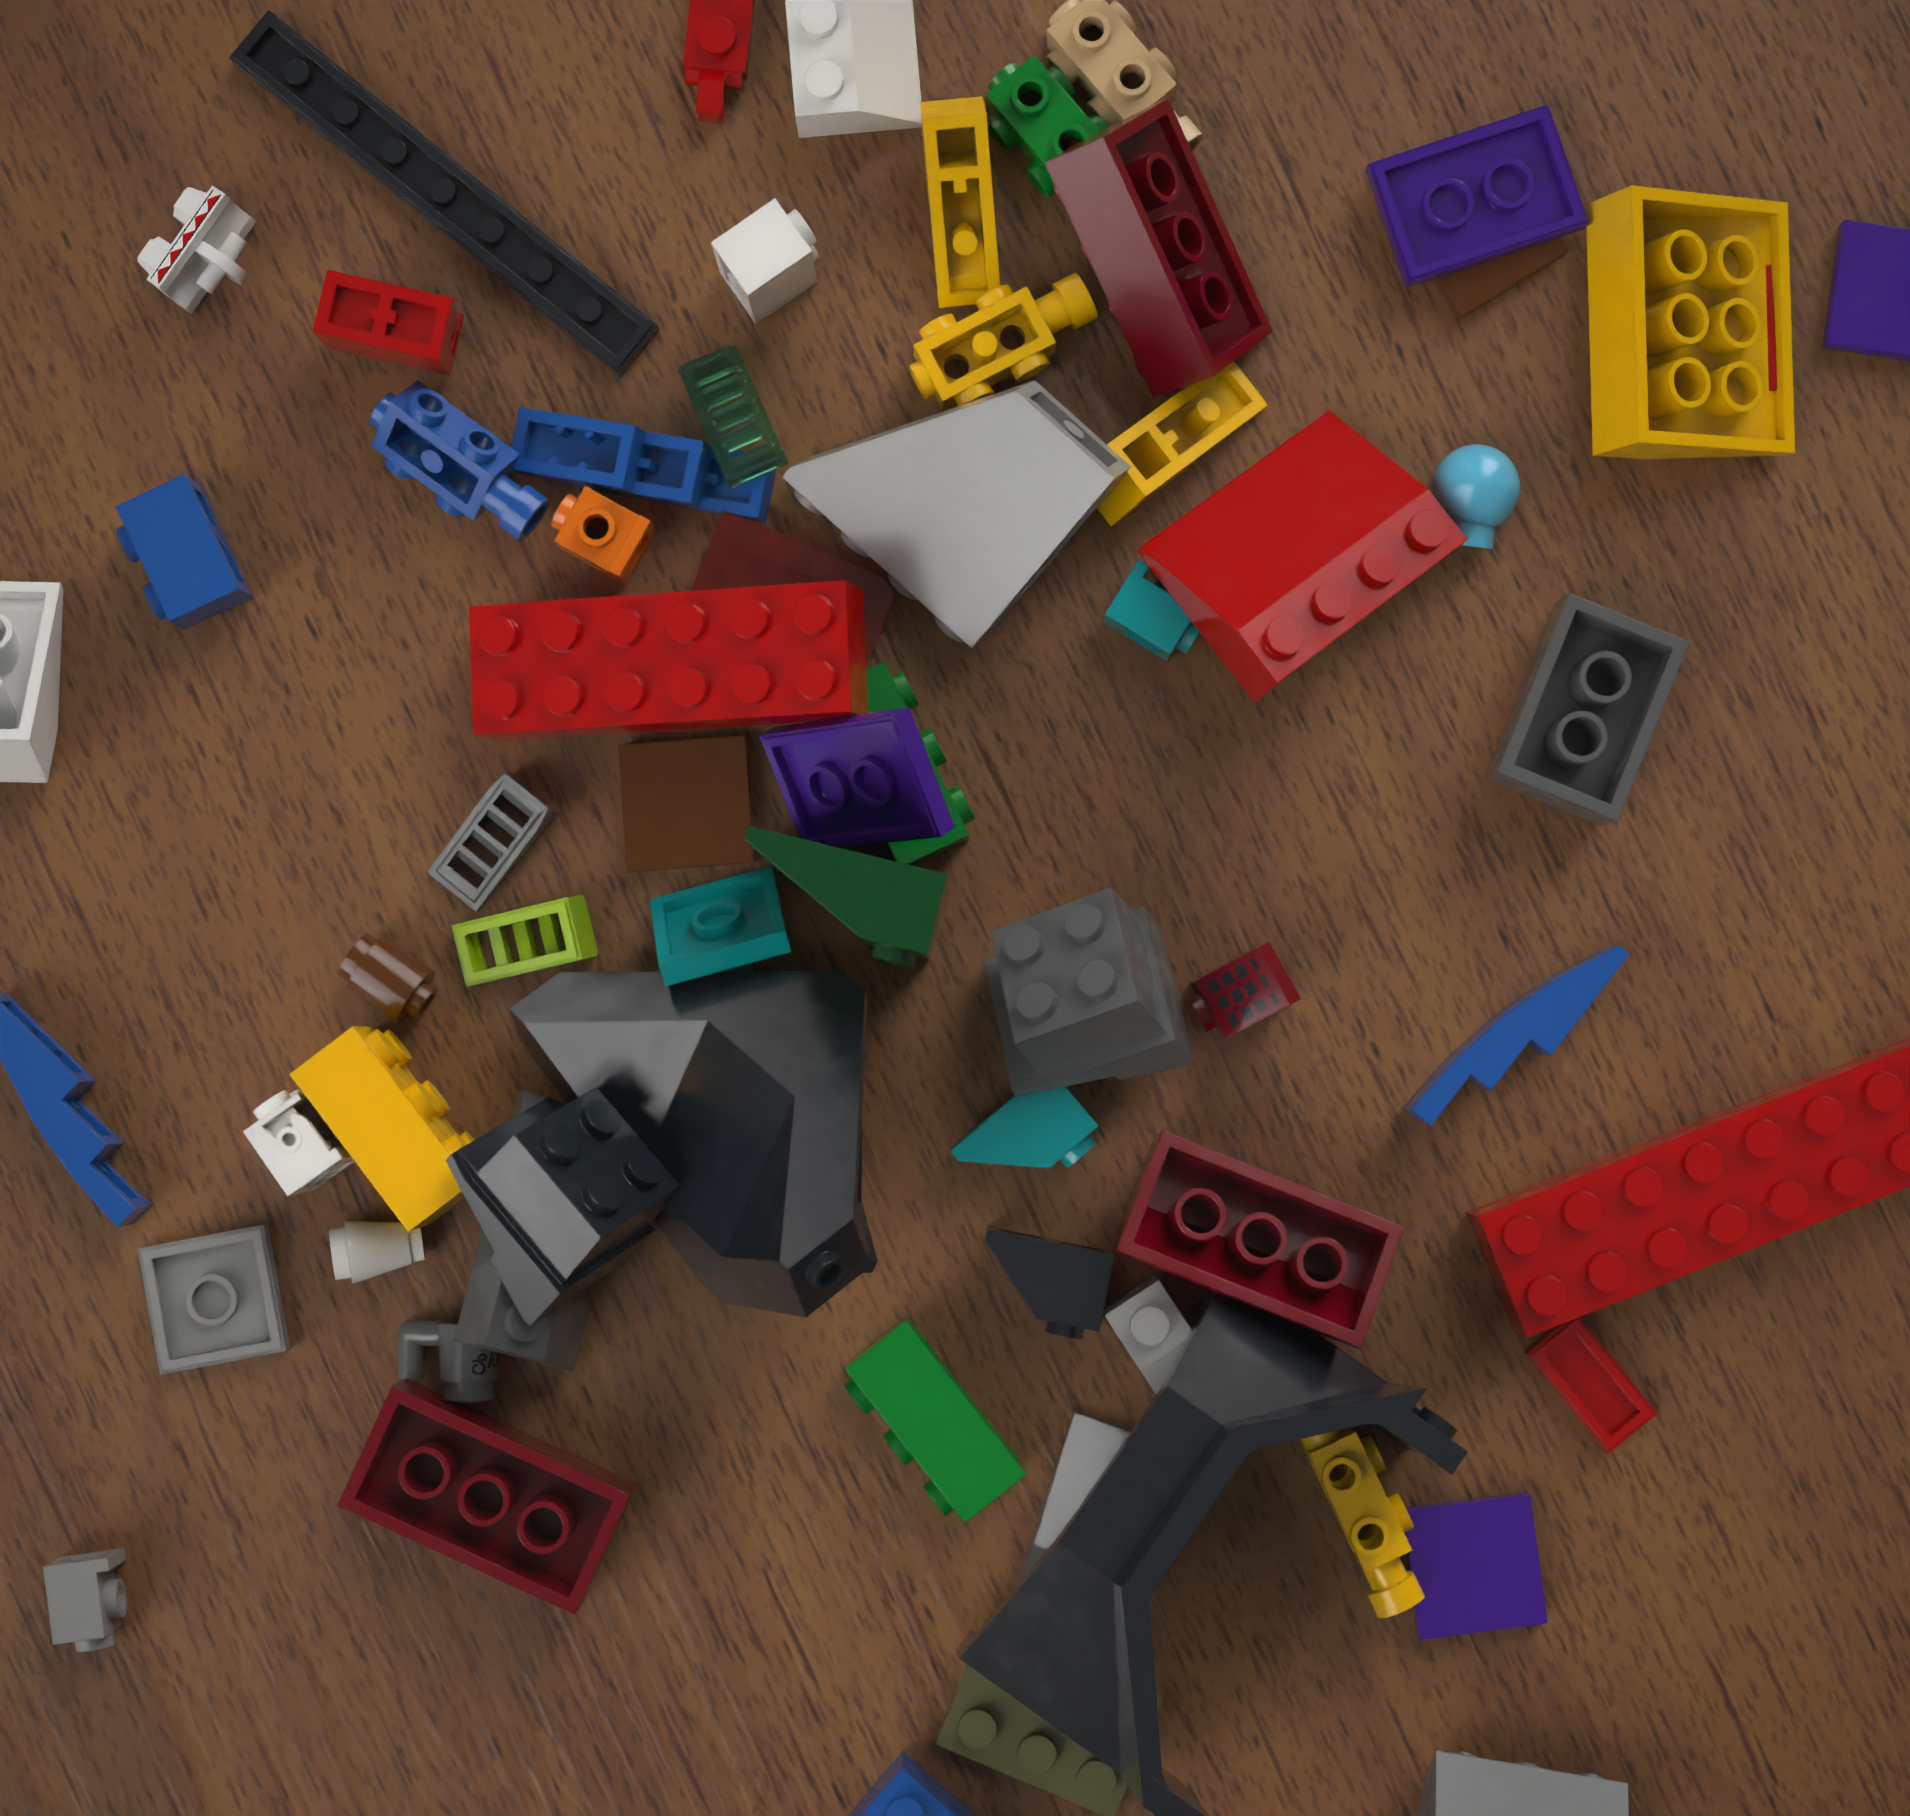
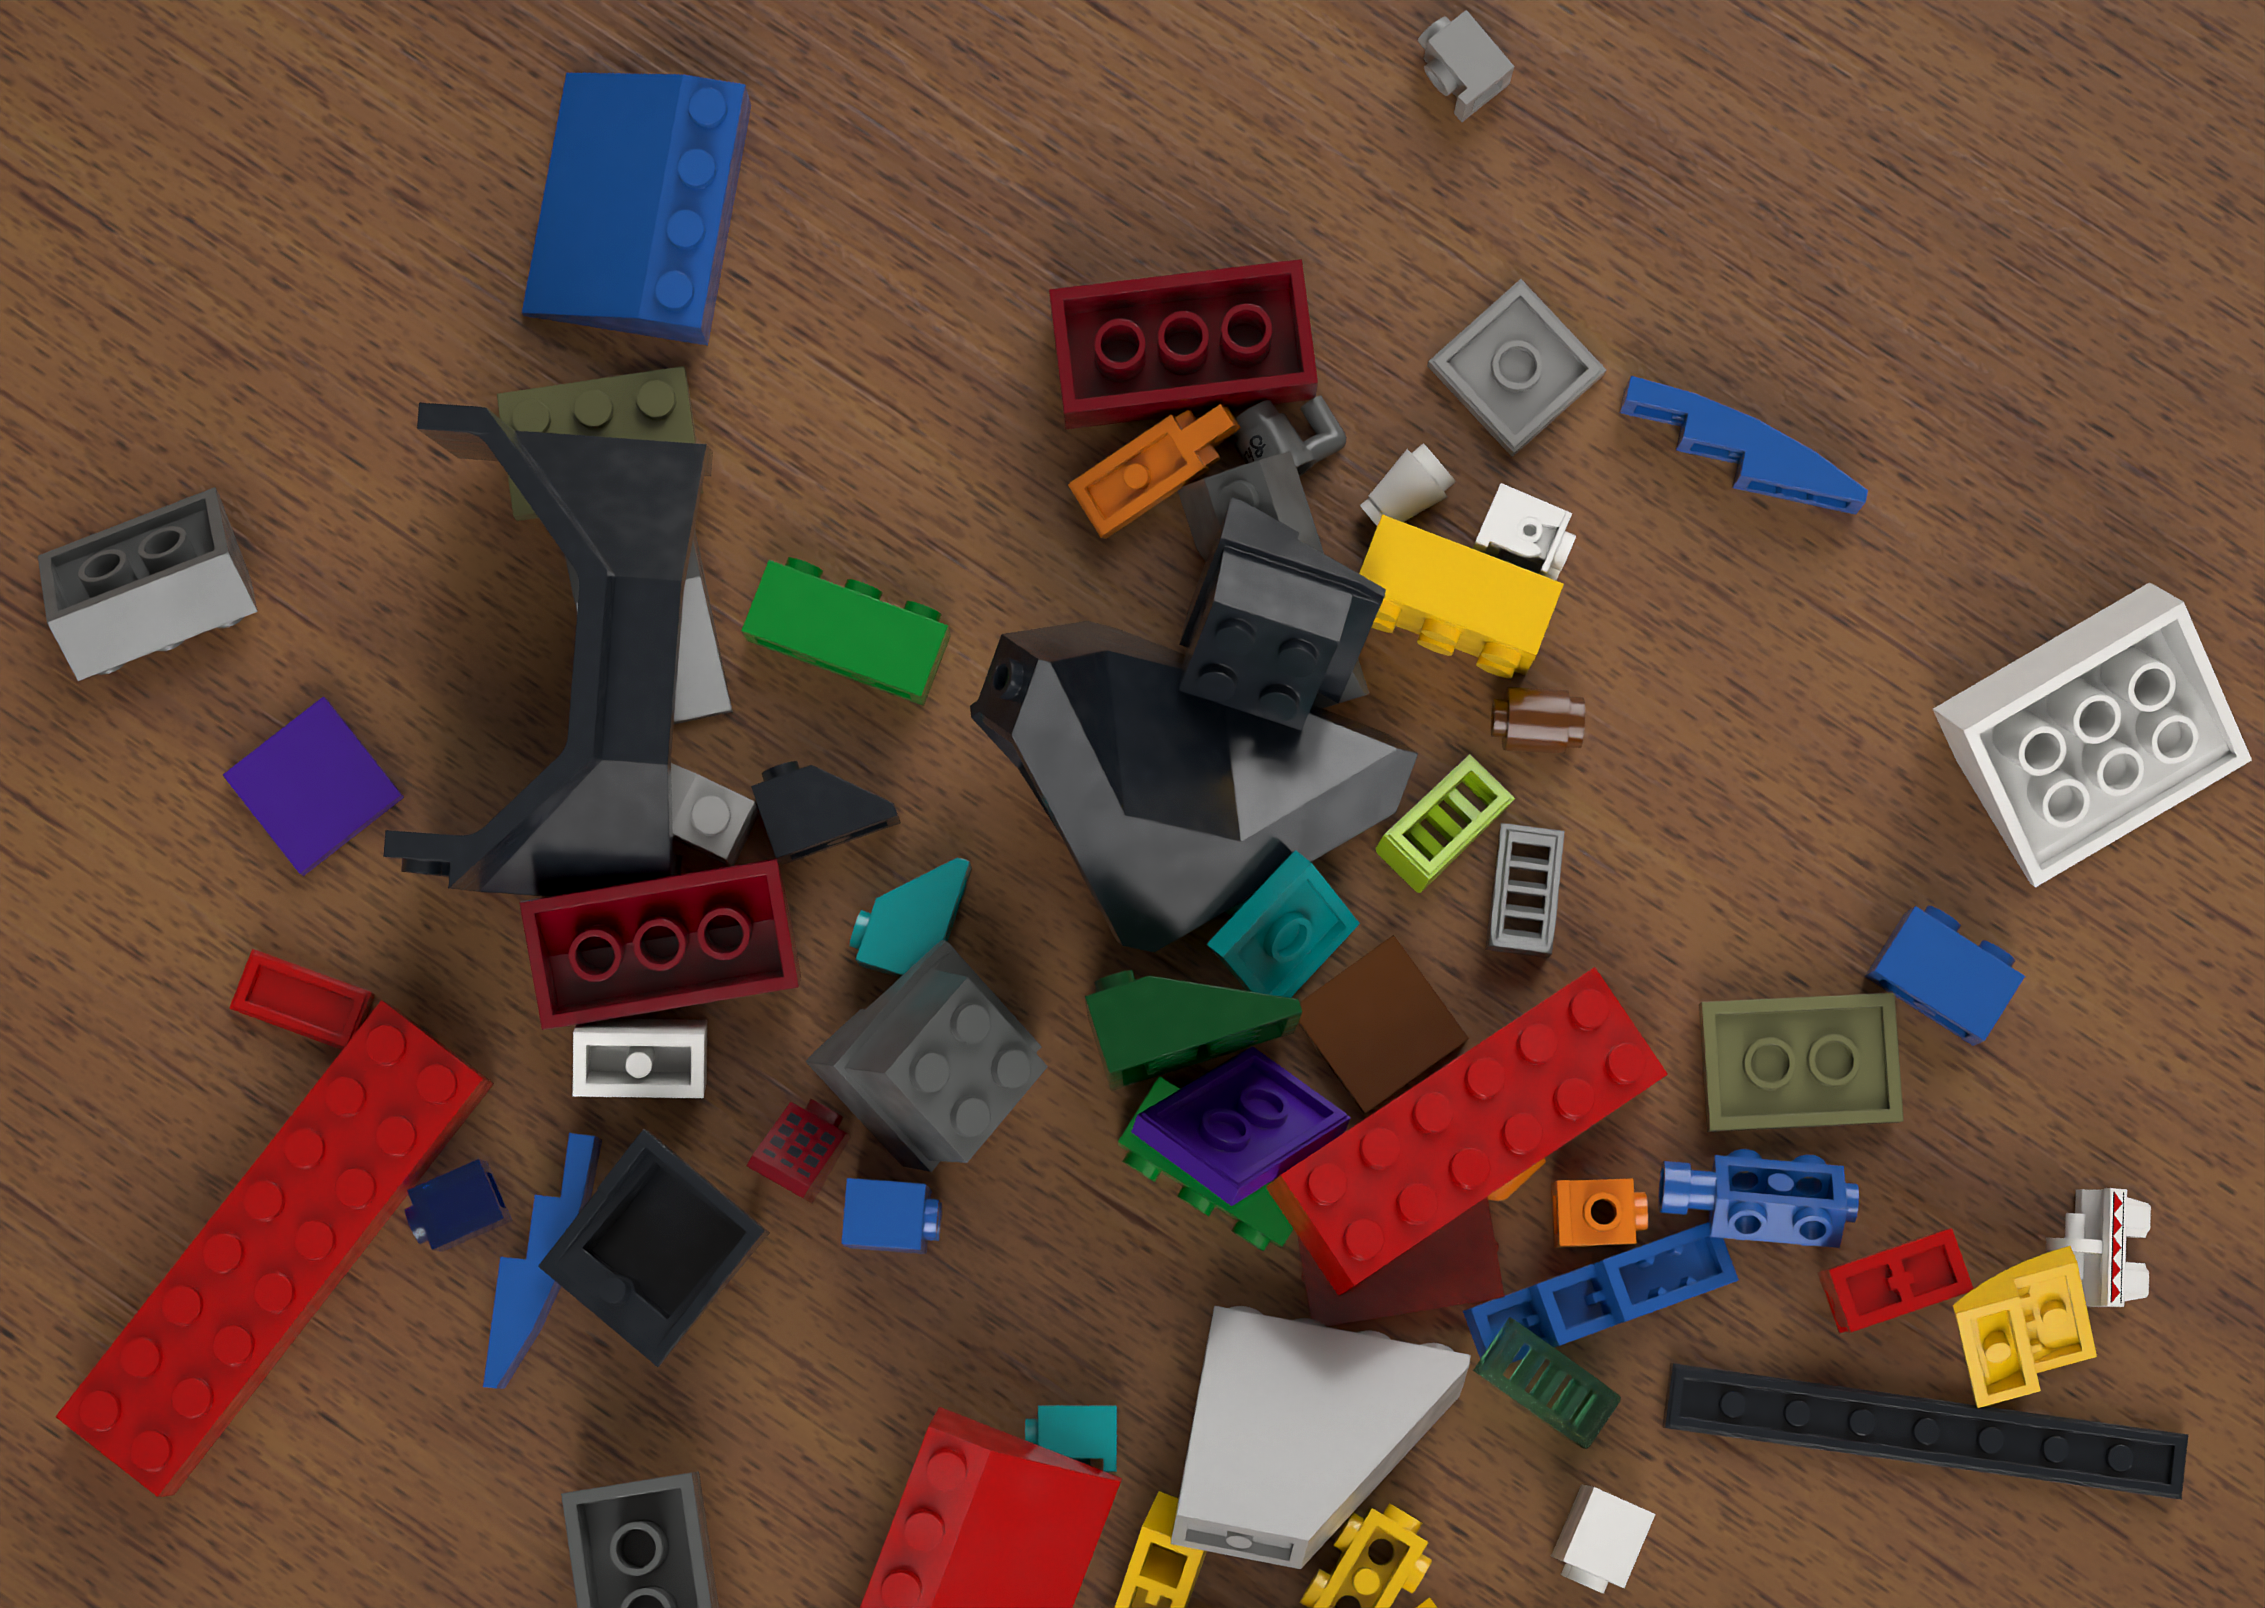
camera: 150 degrees right, 5 degrees down
(305, 223) = (2023, 1326): none -> yellow slope
(351, 554) = (1800, 1062): none -> olive plate
(583, 1401) = (1151, 468): none -> orange hinge
(1200, 887) = (890, 1216): none -> blue brick
(1332, 1152) = (640, 1058): none -> white brick
(1361, 1500) = (442, 779): yellow brick -> none
(1419, 980) = (653, 1247): none -> black piece
(1561, 1122) = (456, 1206): none -> clear blue brick

